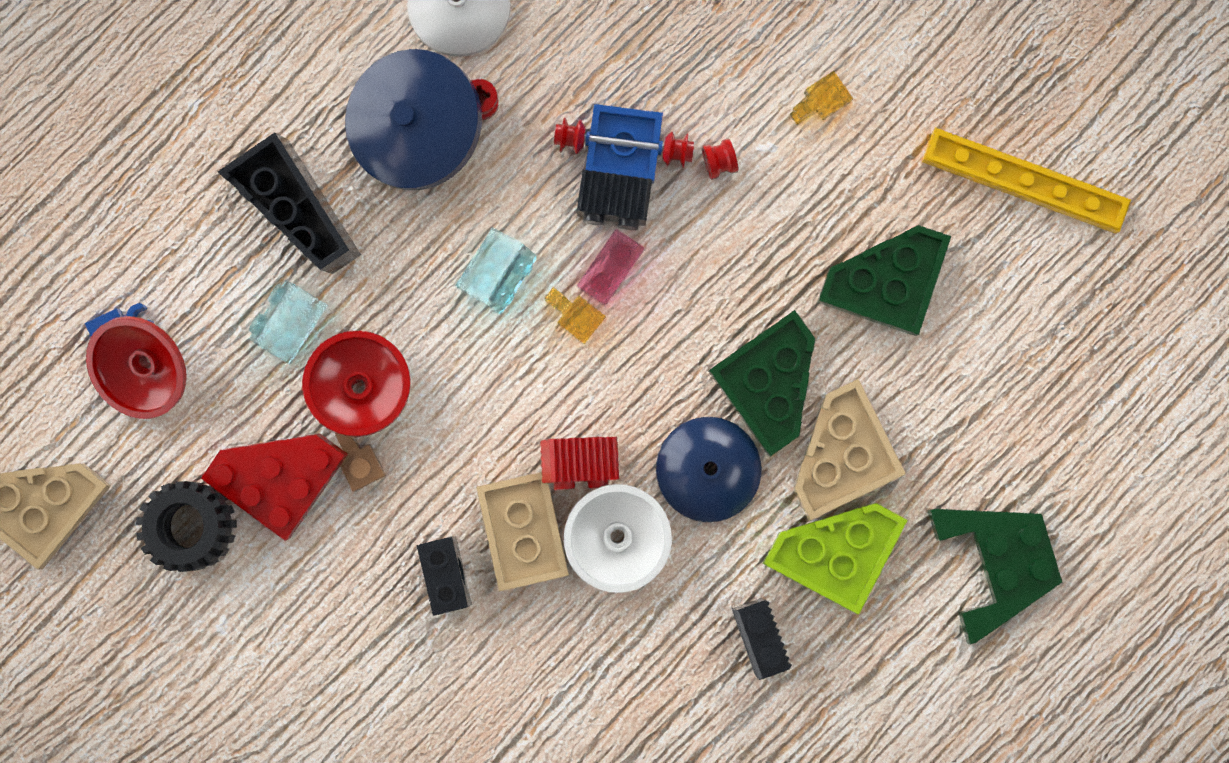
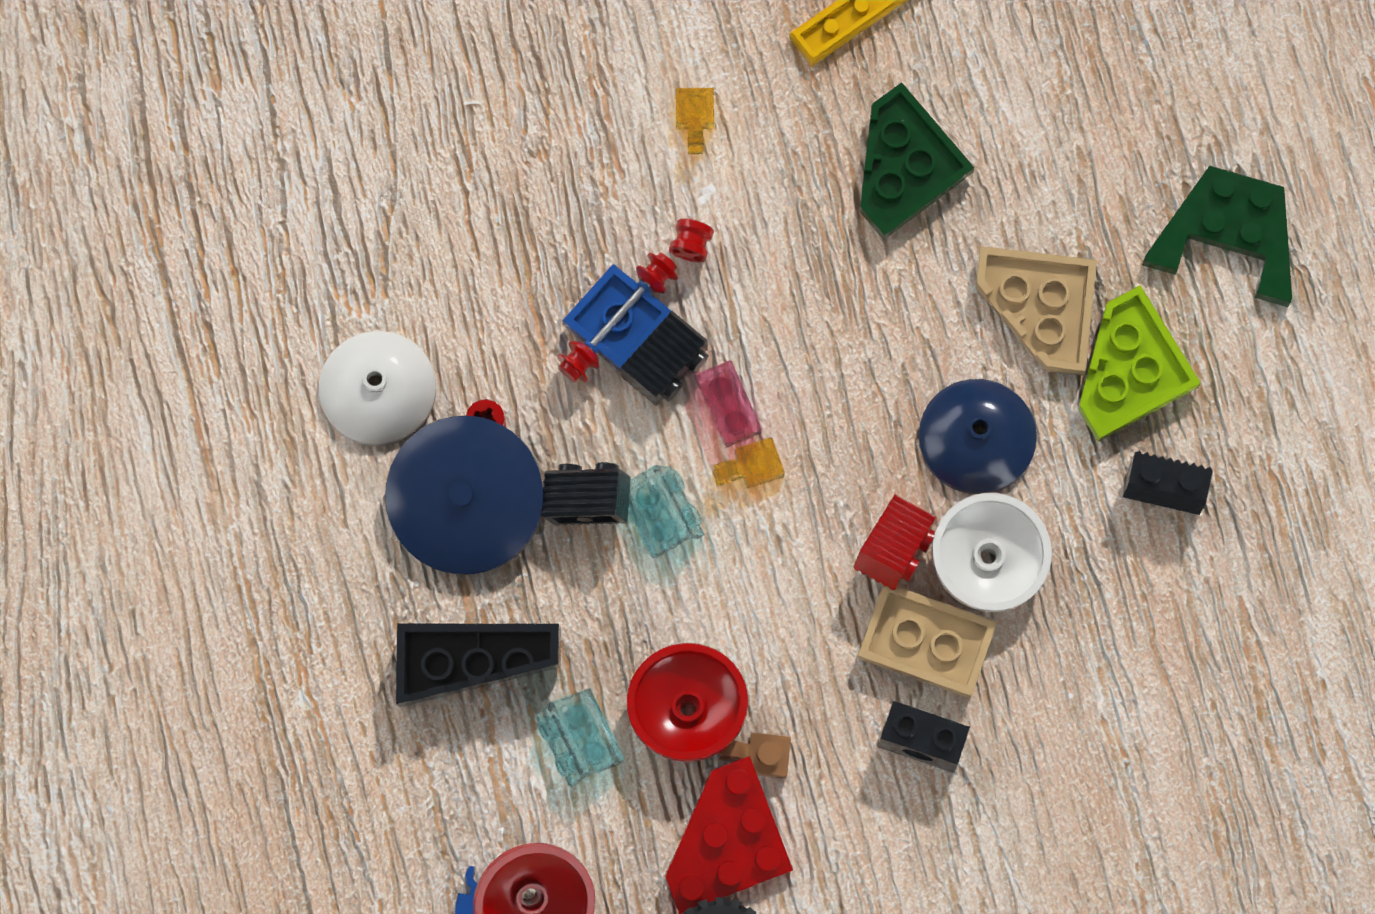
camera: 55 degrees left, 10 degrees down
(468, 208) = (586, 495): none -> black brick
(770, 381) = (931, 327): dark green plate -> none

